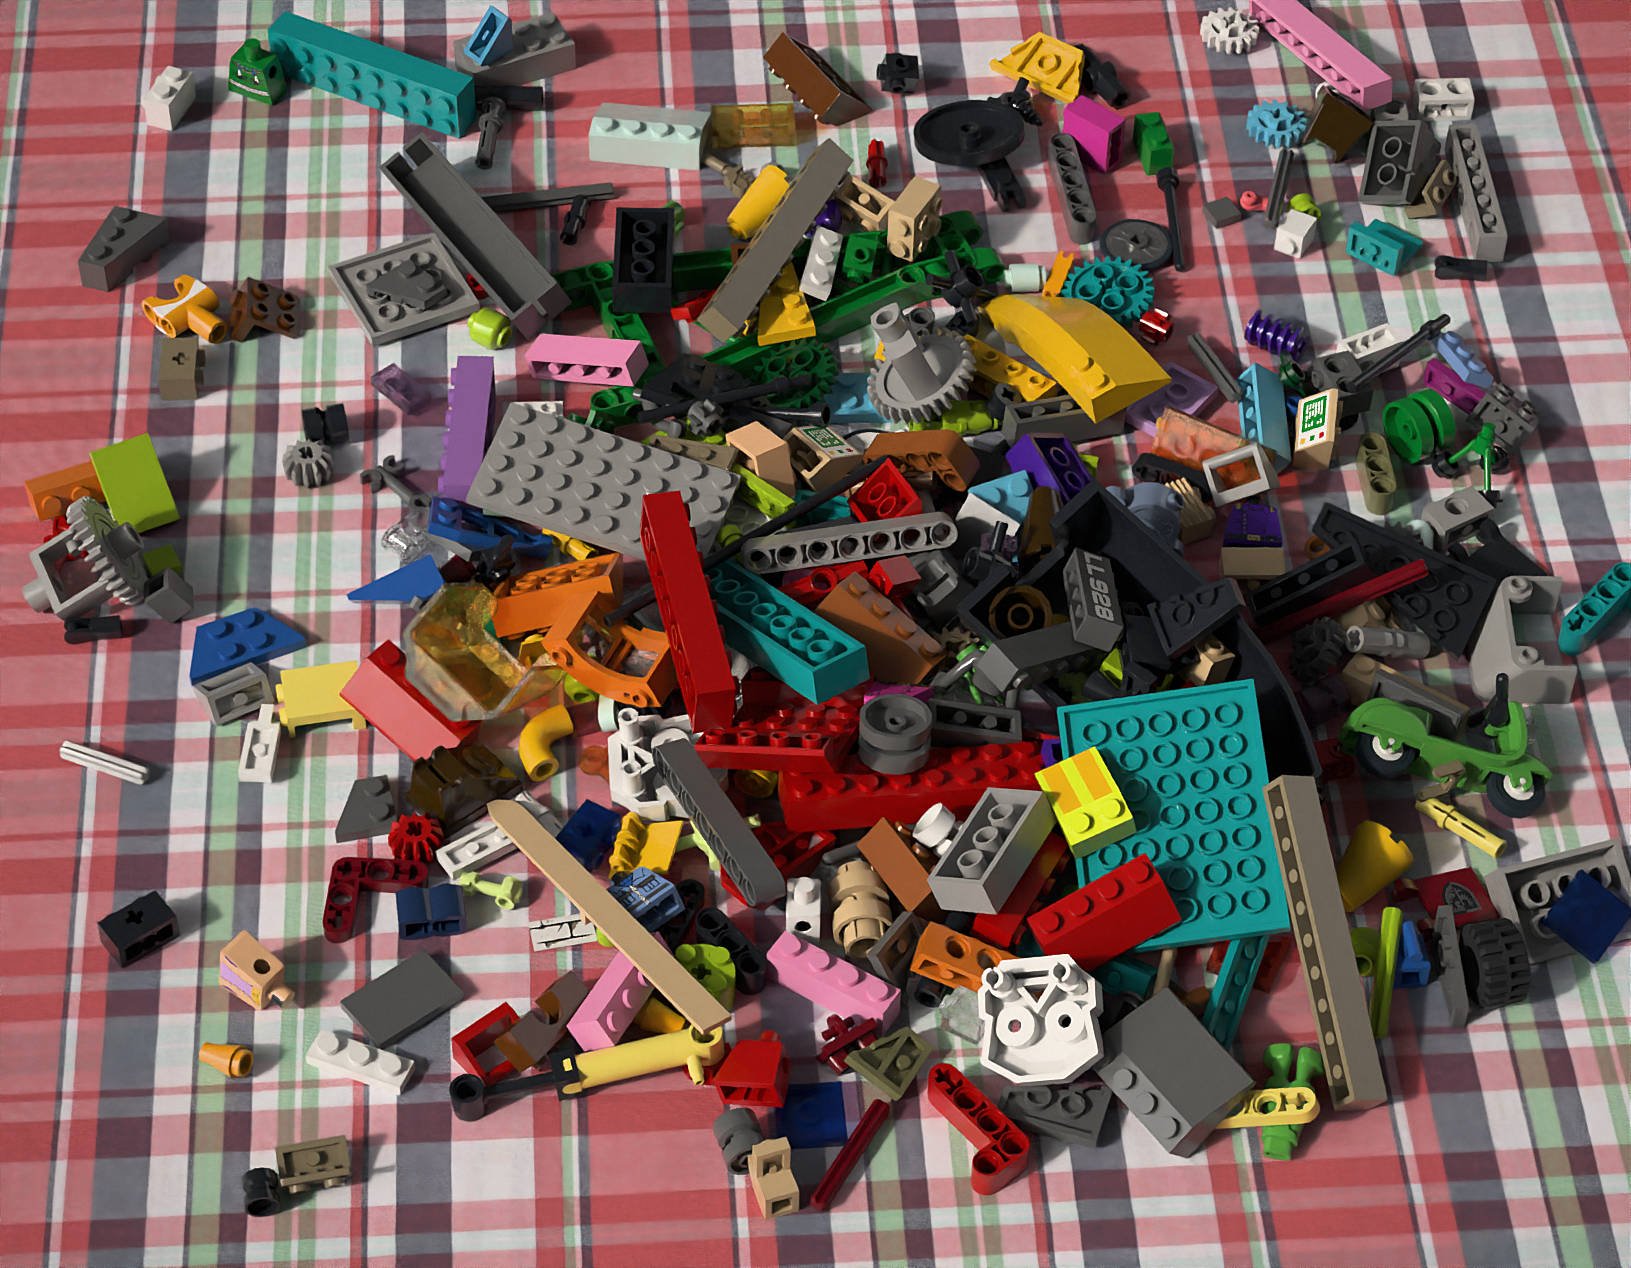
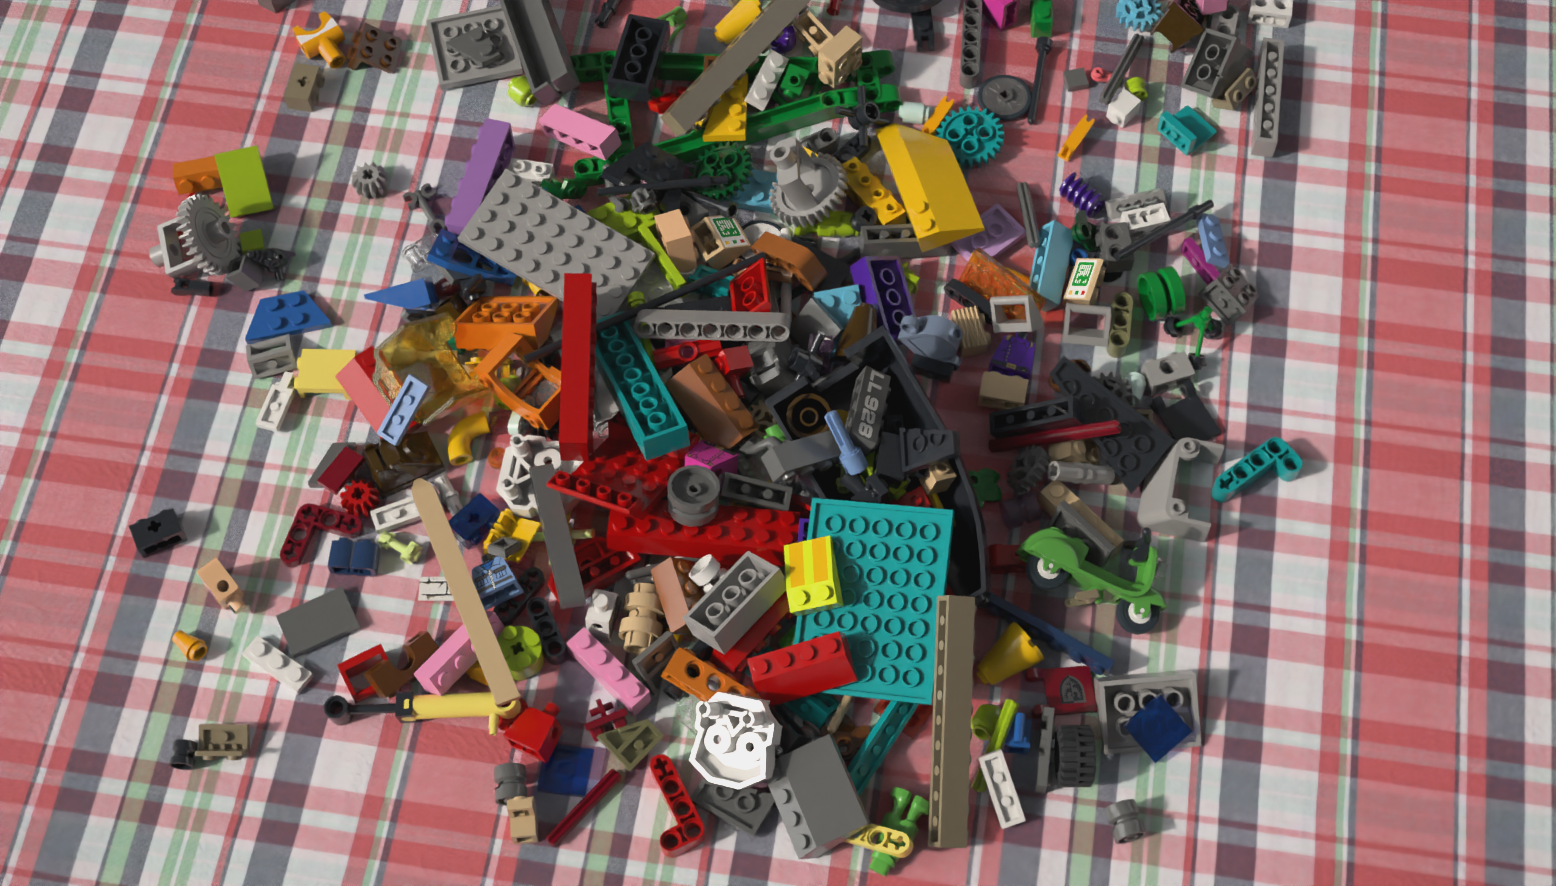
camera: 15 degrees right, 15 degrees up
(104, 762) = (172, 395): axle -> none
(202, 575) = (272, 259): none -> black piece
(326, 424) = (388, 151): black wheel -> none
(380, 807) = (340, 470): none -> dark red tile
(401, 389) = (449, 130): clear purple plate -> none
(462, 701) = (403, 409): none -> medium blue plate
(642, 856) = (504, 547): none -> dark grey tile
(710, 454) = (629, 227): dark tan tile -> none
(1094, 649) = (851, 456): none -> medium blue piece
(1156, 326) = (996, 171): red gear -> none
(1245, 276) = (1075, 138): none -> light orange piece
(1327, 341) = (1117, 206): none -> light grey piece
(1338, 493) = (1082, 335): none -> light grey tile
(1409, 1021) = (1001, 788): none -> white plate
(1419, 837) = (1052, 636): none -> dark blue plate
(1450, 818) = (1108, 648): light yellow pin -> none
(1462, 269) = (1239, 159): black bar -> none
(1580, 1028) = (1125, 821): none -> dark grey wheel

